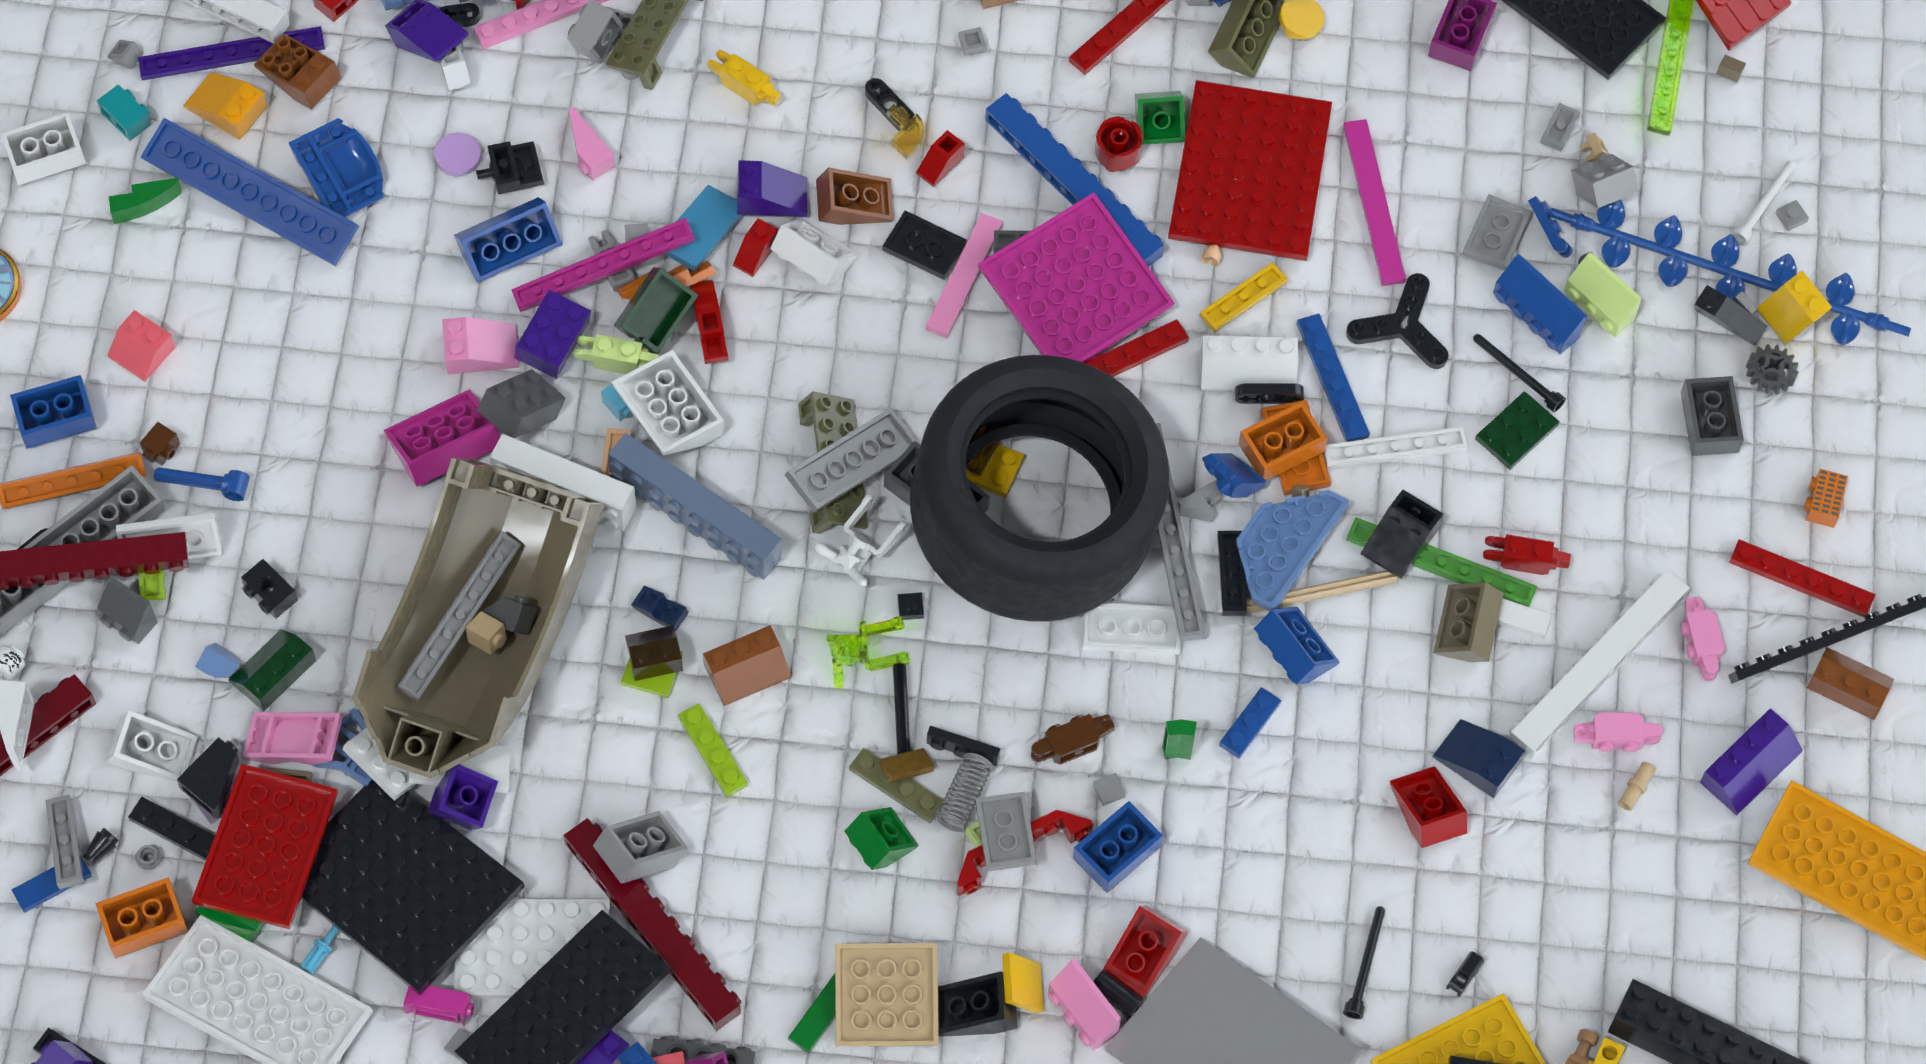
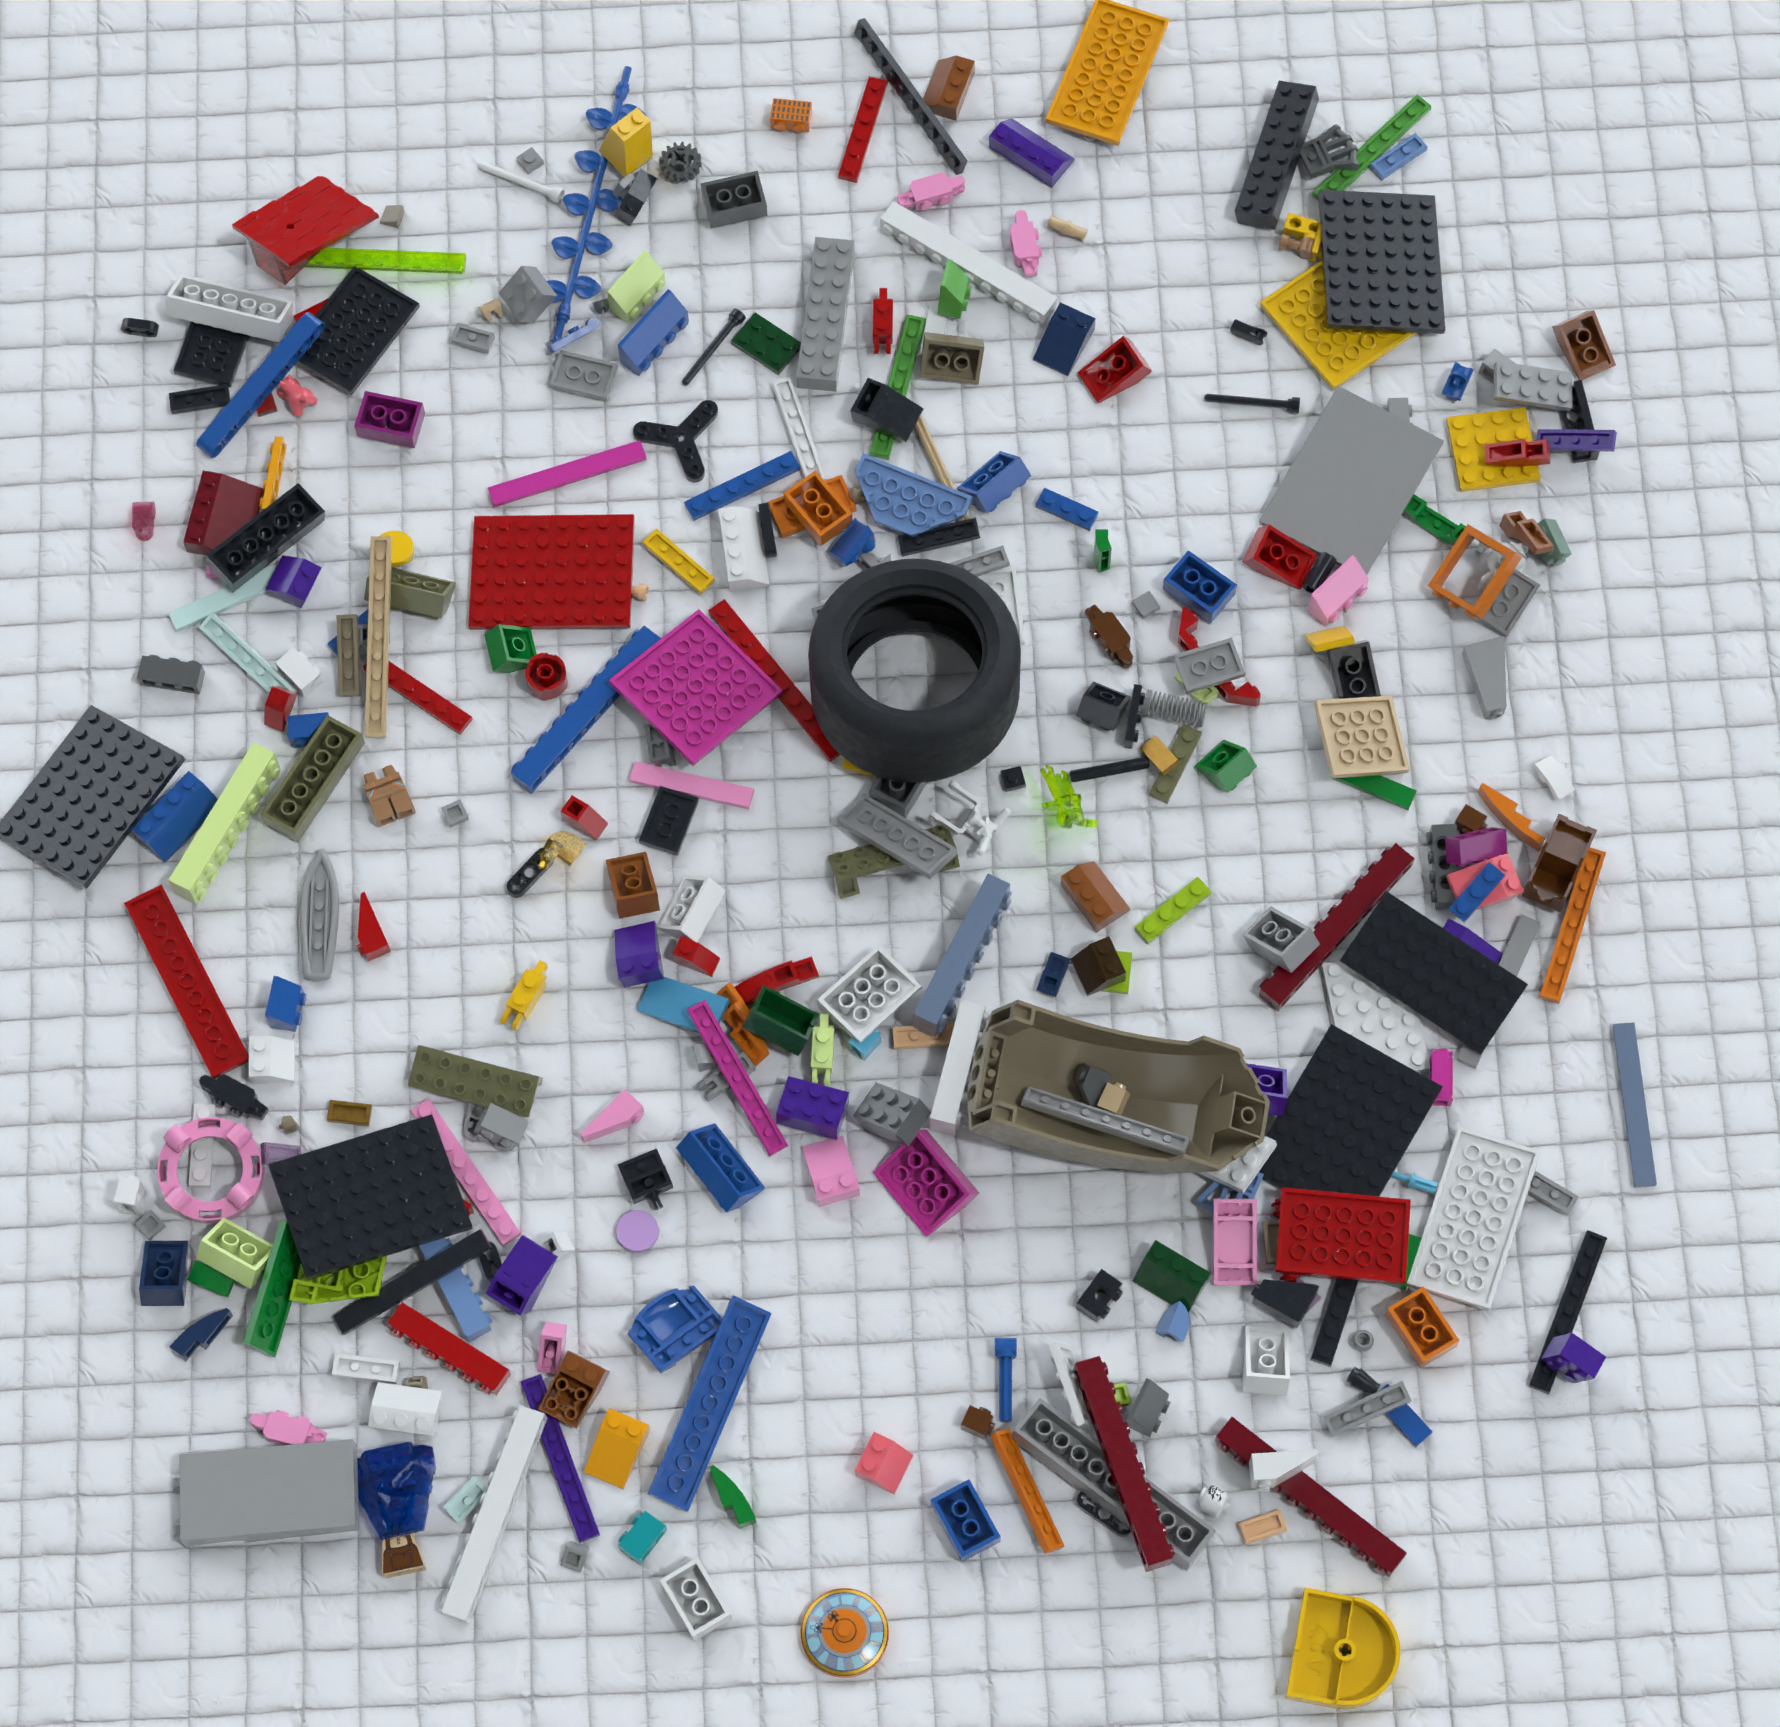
camera: 95 degrees left, 5 degrees up
(351, 56) = (551, 1347): none -> bright pink slope
(983, 714) = (1102, 706): none -> black slope
(1546, 494) = (825, 314): none -> light grey brick
(1556, 632) = (953, 291): none -> bright green slope

